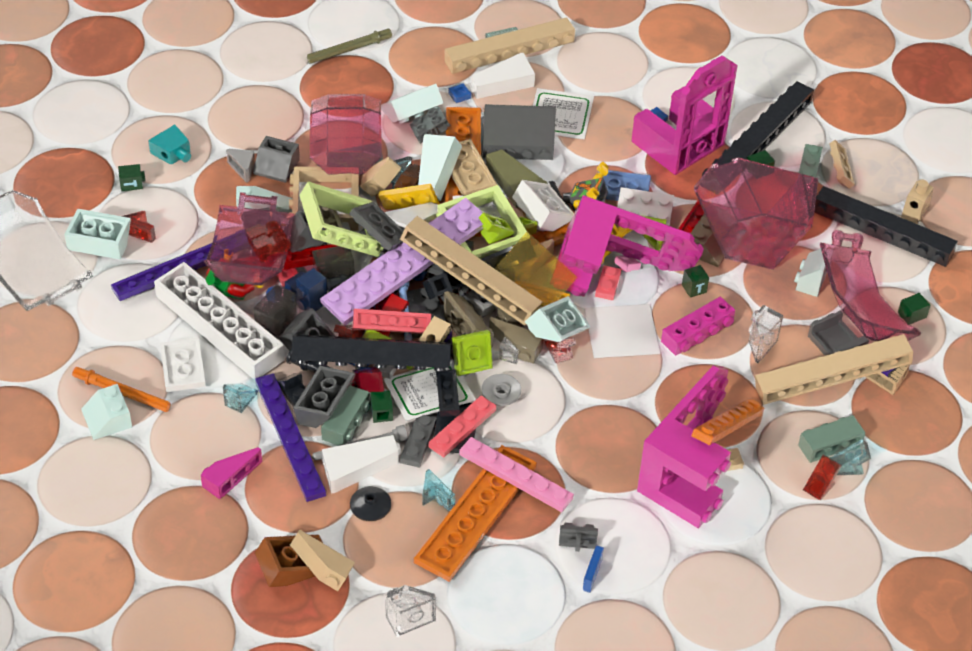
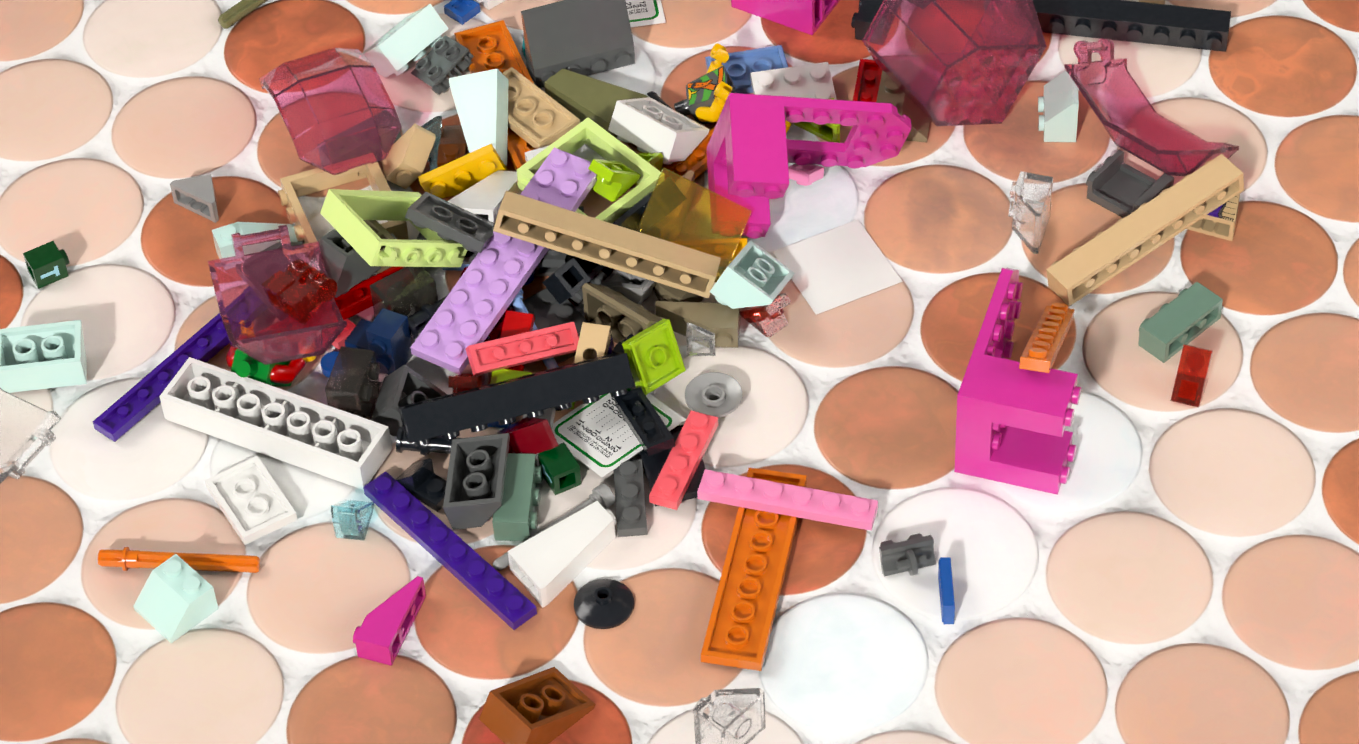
camera: 15 degrees left, 0 degrees up
(140, 228) = (98, 332): clear red slope -> none
(170, 146) = (83, 203): teal torso -> none
(276, 159) = (247, 175): slope -> none
(322, 560) = (583, 698): tan slope -> none
(436, 489) = (686, 554): clear light blue slope -> none
(608, 282) = (791, 210): coral plate -> none
(695, 281) = (908, 169): dark green brick -> none
(698, 326) = (938, 228): dark pink brick -> none
(852, 458) = (1220, 337): clear light blue slope -> none
(913, 308) = (1211, 118): dark green brick -> none

